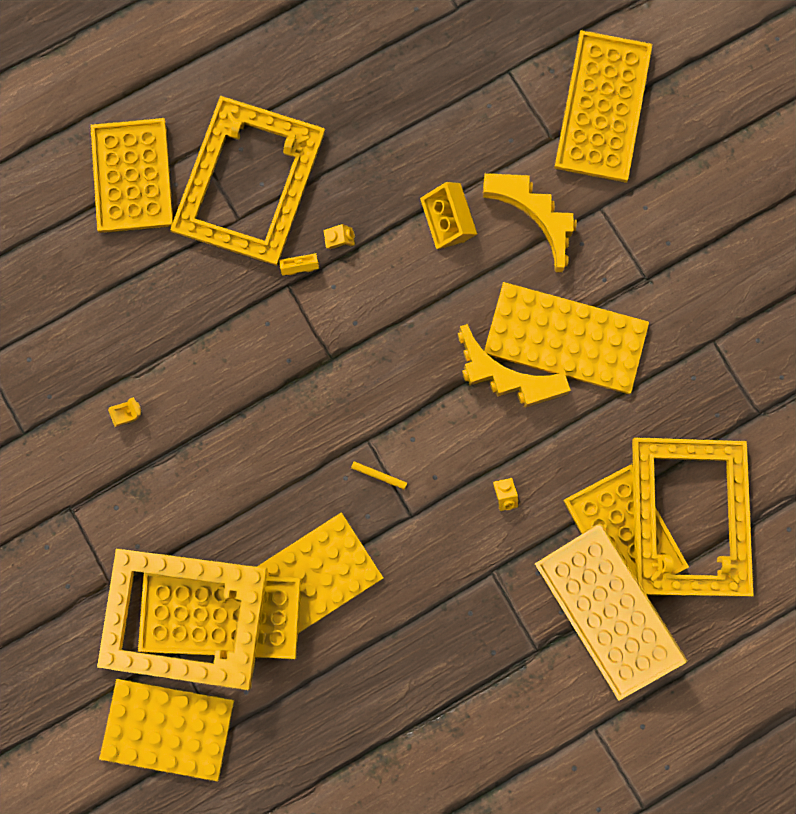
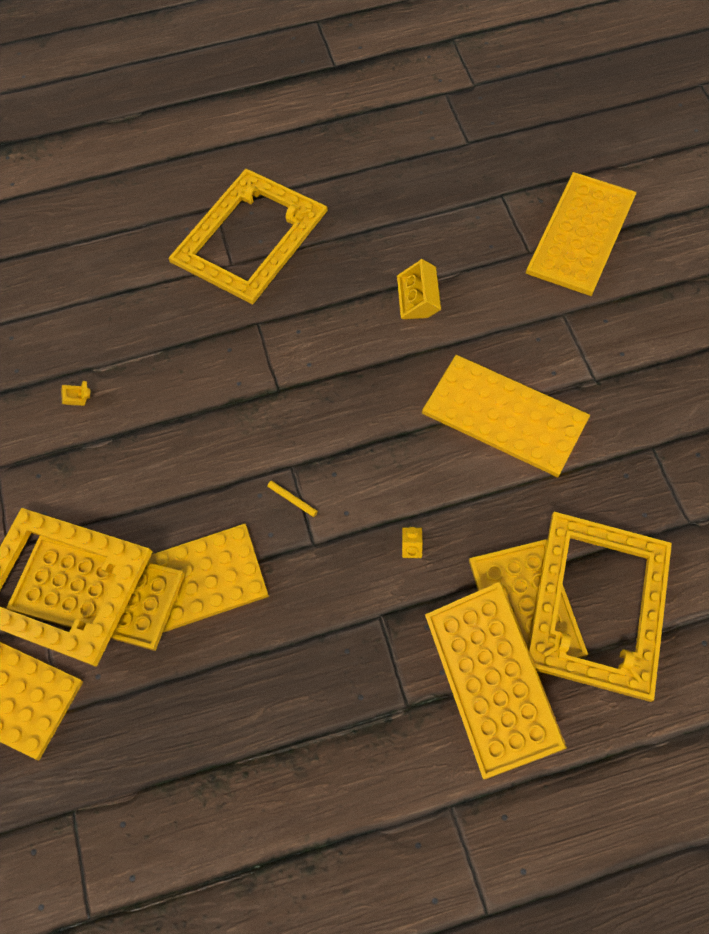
camera: 20 degrees right, 15 degrees down
(131, 175) = (151, 214): yellow plate -> none
(299, 264) = (264, 306): yellow plate -> none
(339, 236) = (315, 289): yellow bracket -> none
(504, 380) = (459, 449): yellow arch -> none
(518, 192) = (487, 284): yellow arch -> none

